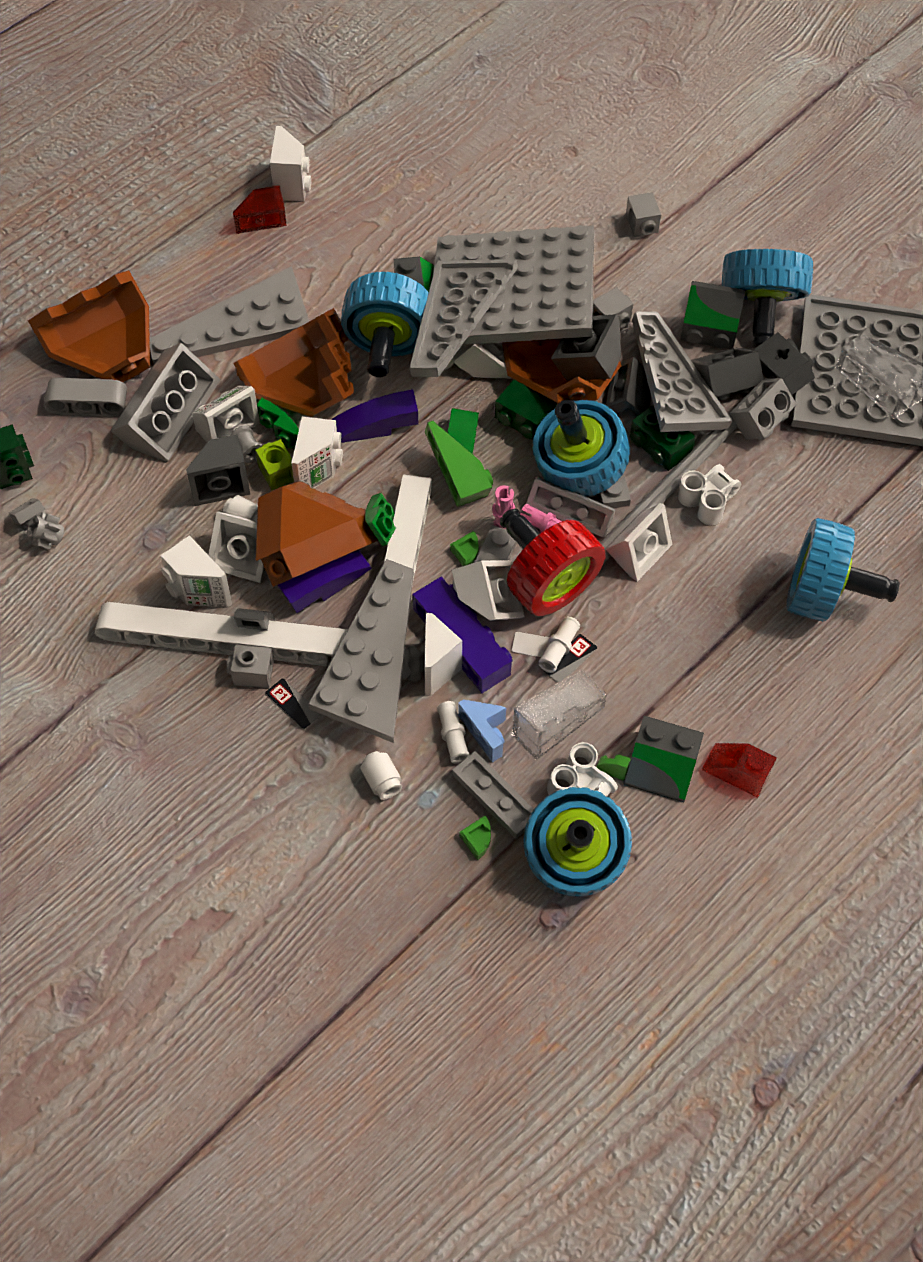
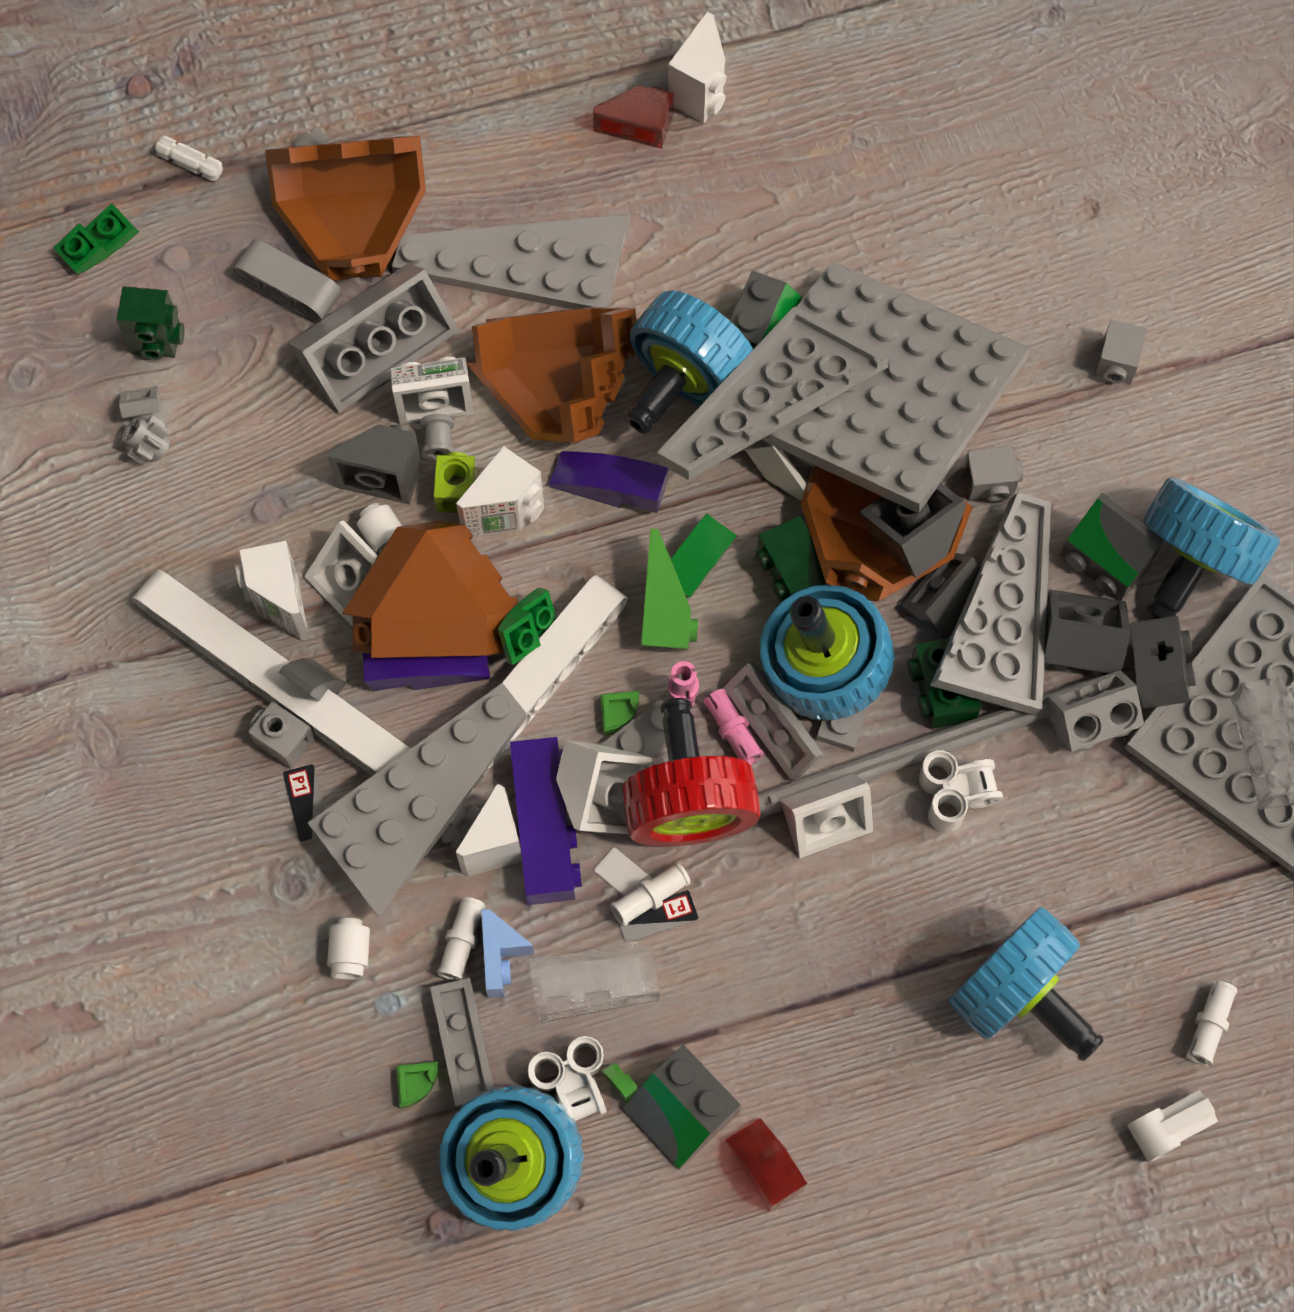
camera: 30 degrees right, 10 degrees up
(273, 417) = (489, 426): green slope -> none

